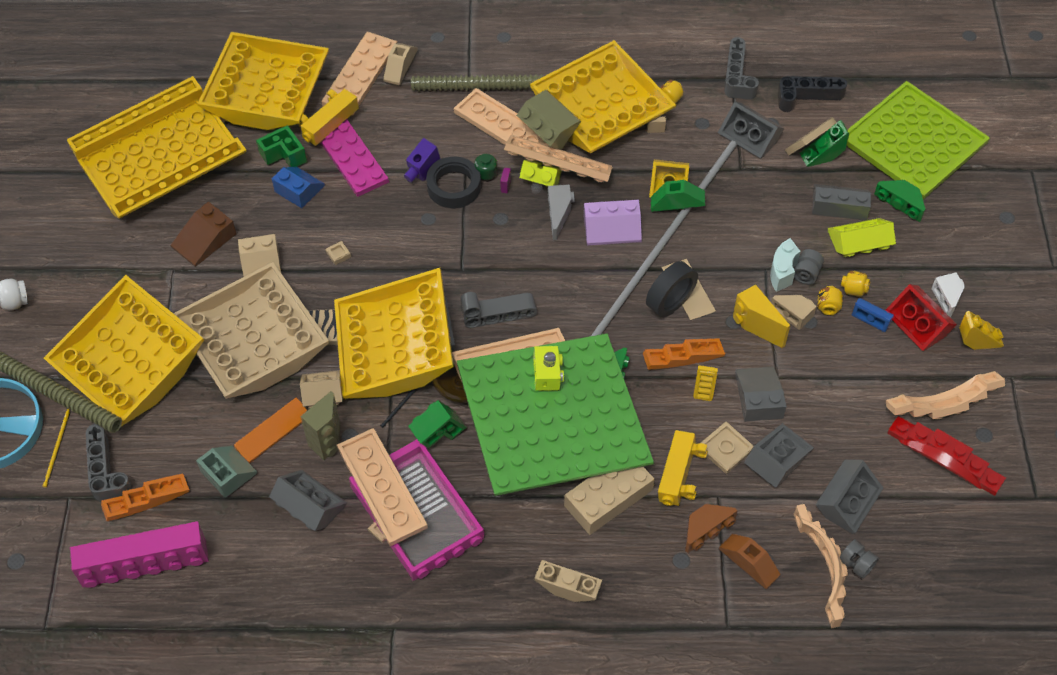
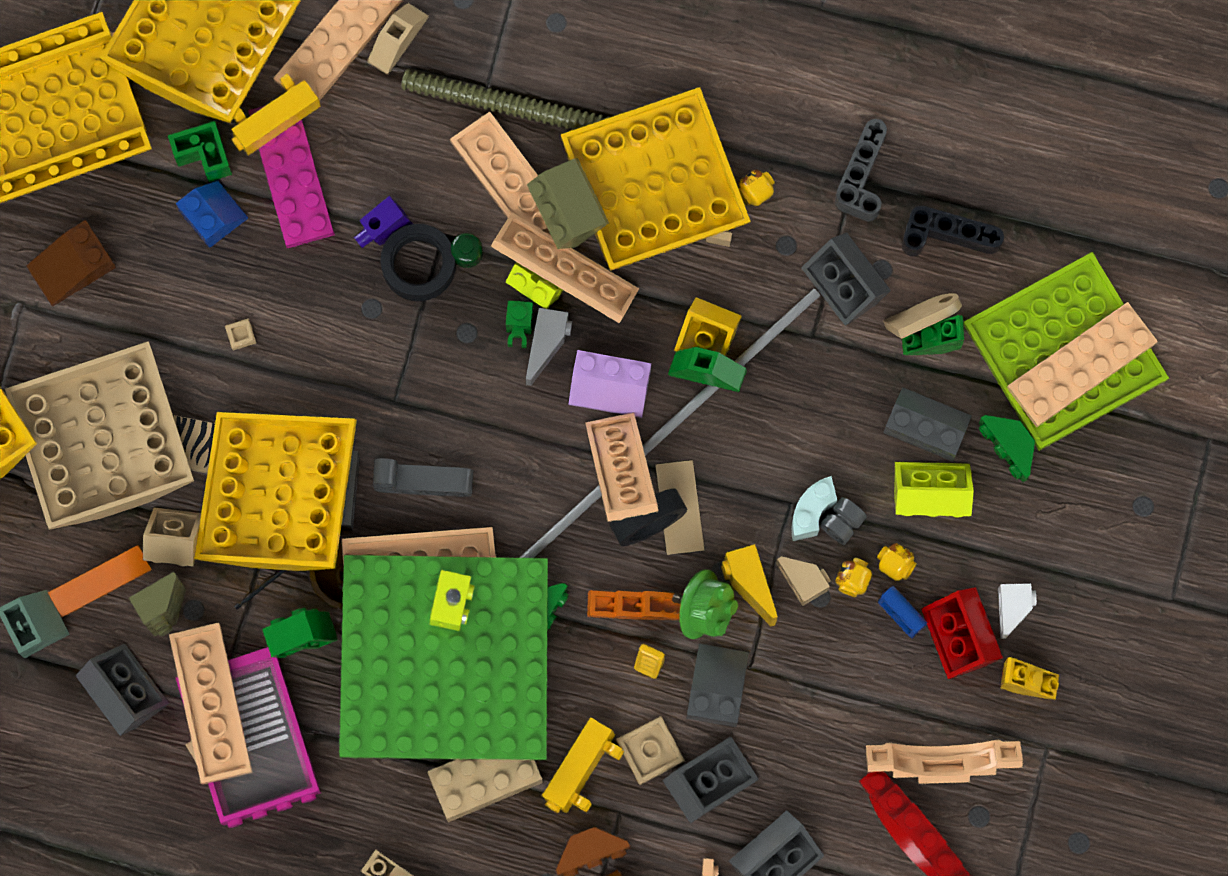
camera: 15 degrees right, 20 degrees up
(258, 252) = (136, 319): tan slope -> none
(505, 180) = (488, 277): magenta tile -> none
(535, 198) = (519, 321): none -> green brick
(643, 258) = (621, 467): none -> light nougat plate
(734, 335) = (705, 606): none -> bright green piece
(929, 141) = (1082, 364): none -> light nougat plate

